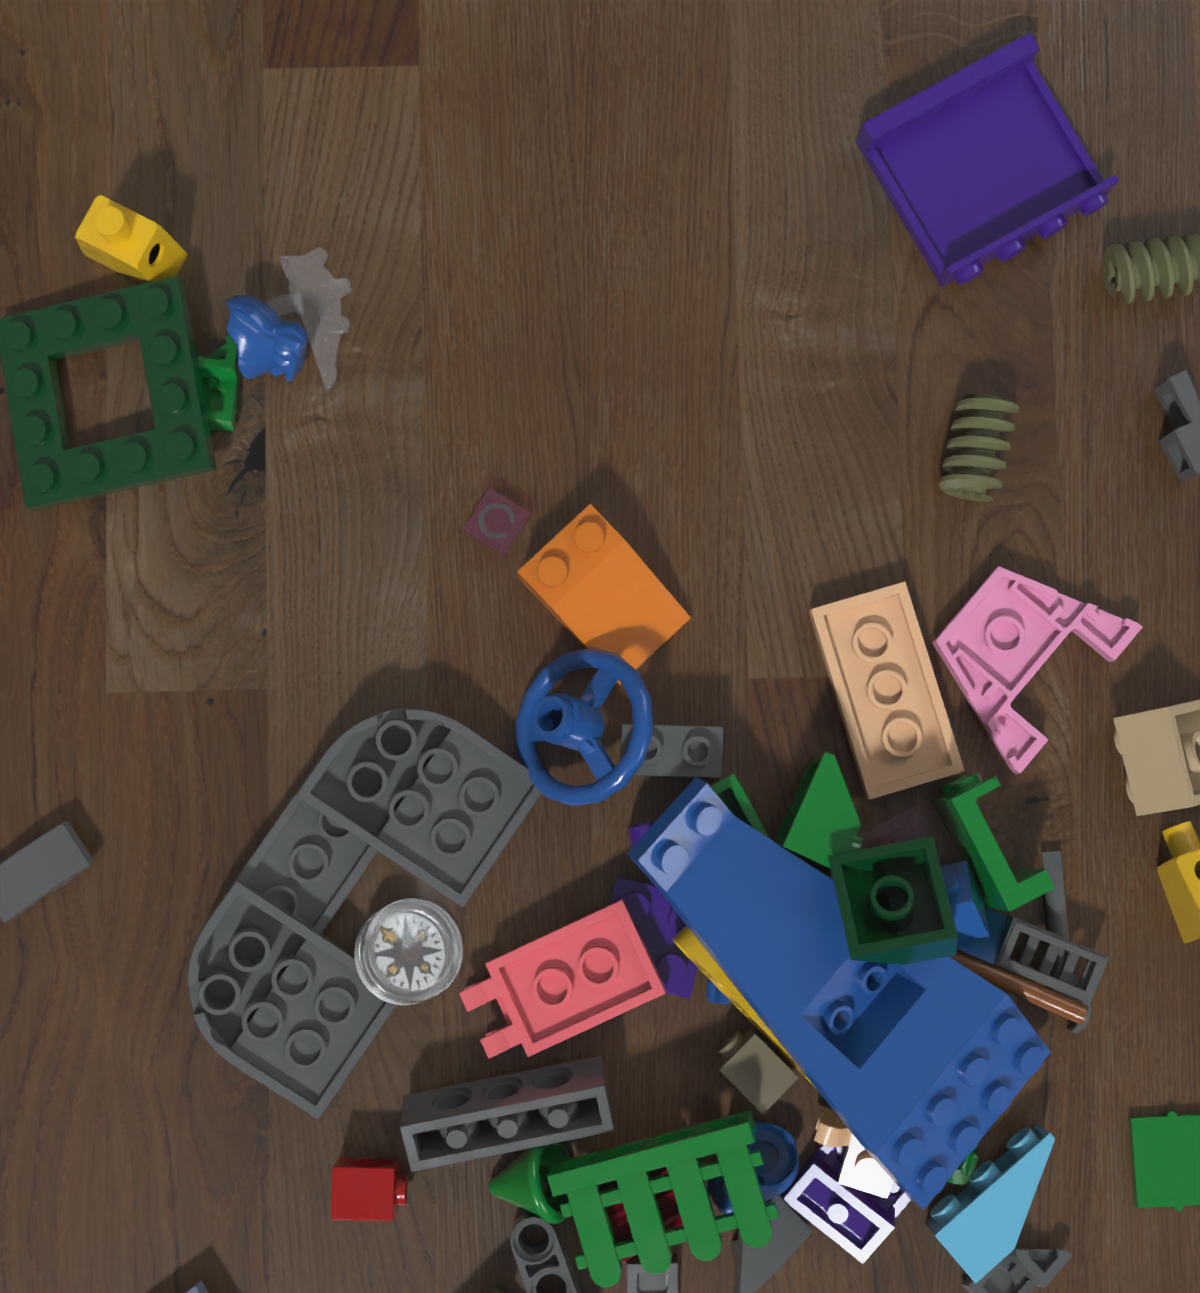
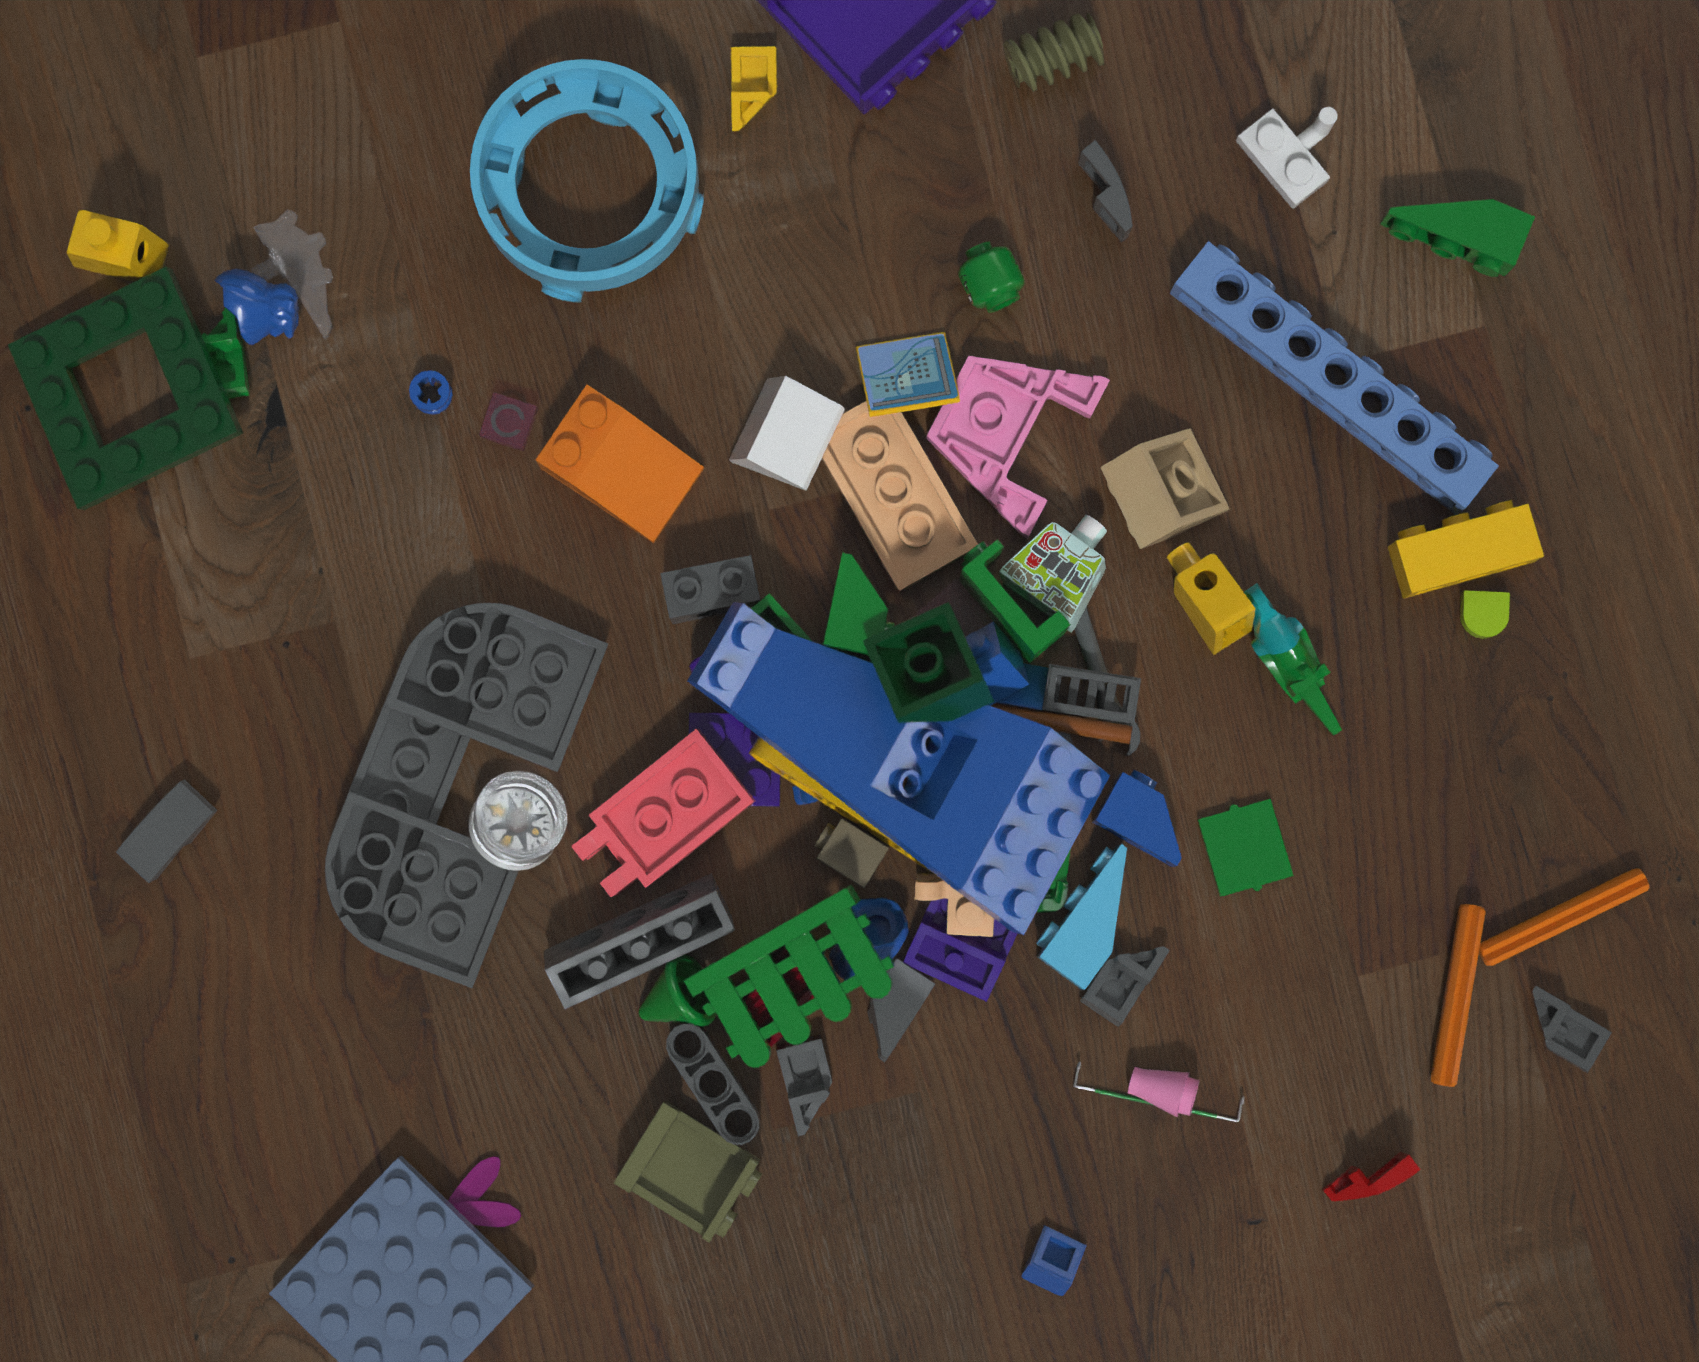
camera: 10 degrees left, 0 degrees up
(367, 1189) = (531, 1038): red brick -> none
(408, 470) = (417, 393): none -> blue bush
(580, 725) = (622, 583): blue piece -> none
(684, 206) = (612, 97): none -> medium azure piece
(789, 602) = (787, 432): none -> white slope
(833, 225) = (752, 82): none -> yellow slope
(929, 571) = (907, 374): none -> piece
(976, 447) = (924, 253): olive piece -> none
(1039, 488) = (991, 277): none -> green head
(1045, 817) = (1058, 569): none -> torso
(1072, 1103) = (1139, 817): none -> blue slope

